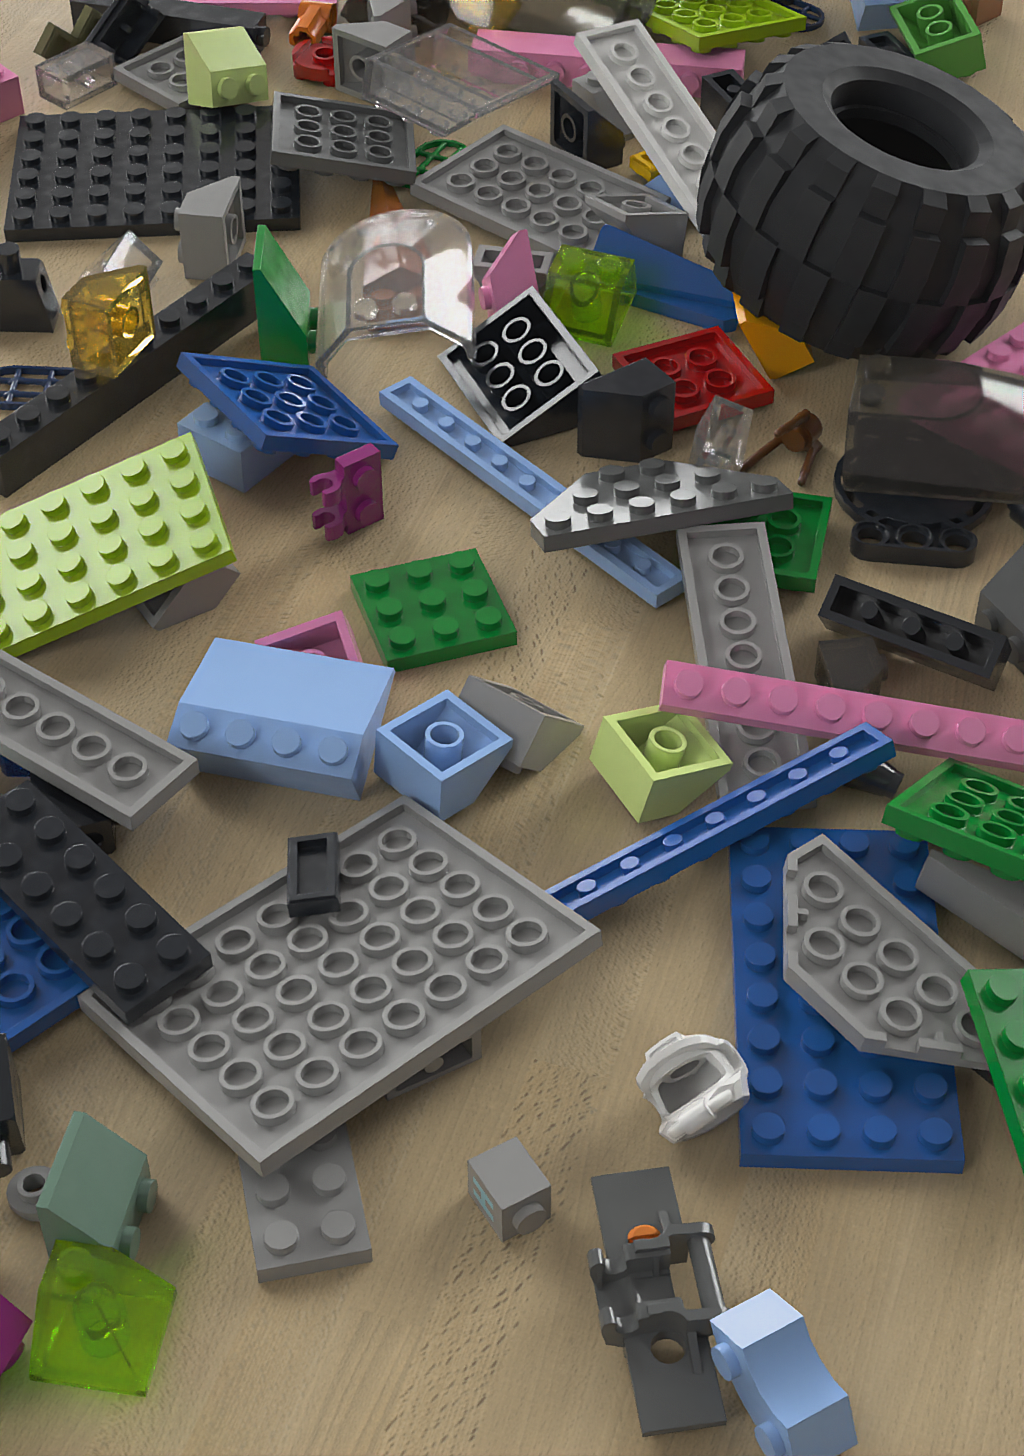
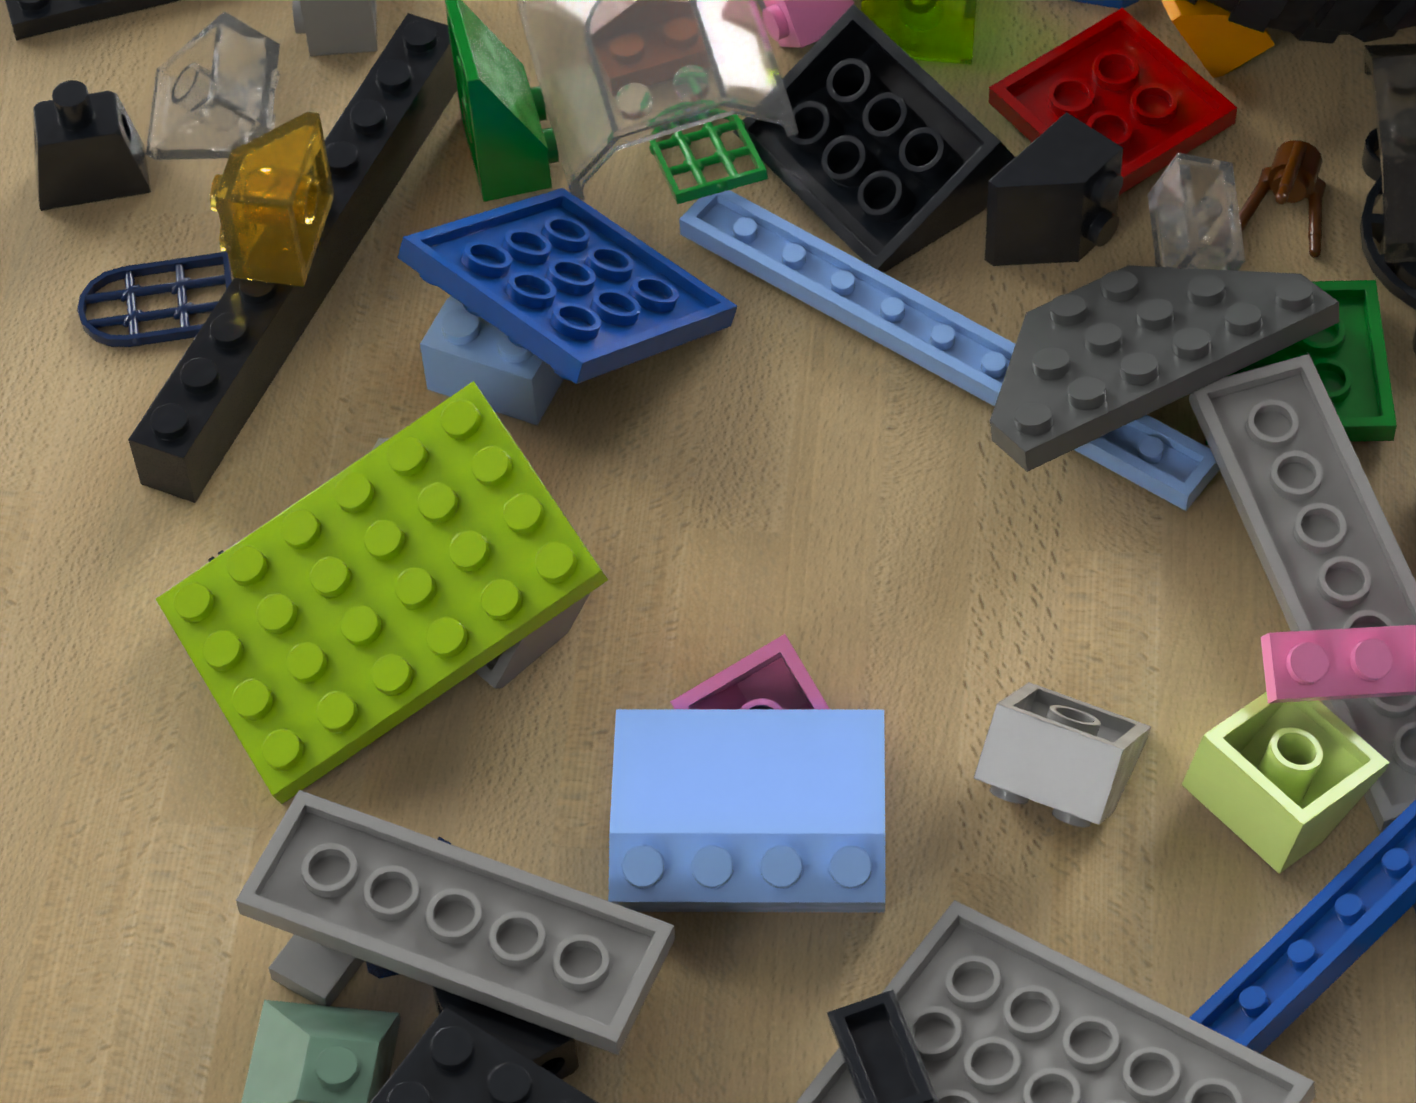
camera: 10 degrees left, 10 degrees up
(349, 493) = (716, 412): magenta plate -> none
(433, 610) = (878, 577): green plate -> none
(436, 348) = (706, 188): none -> green window
(440, 754) = (987, 828): light blue slope -> none

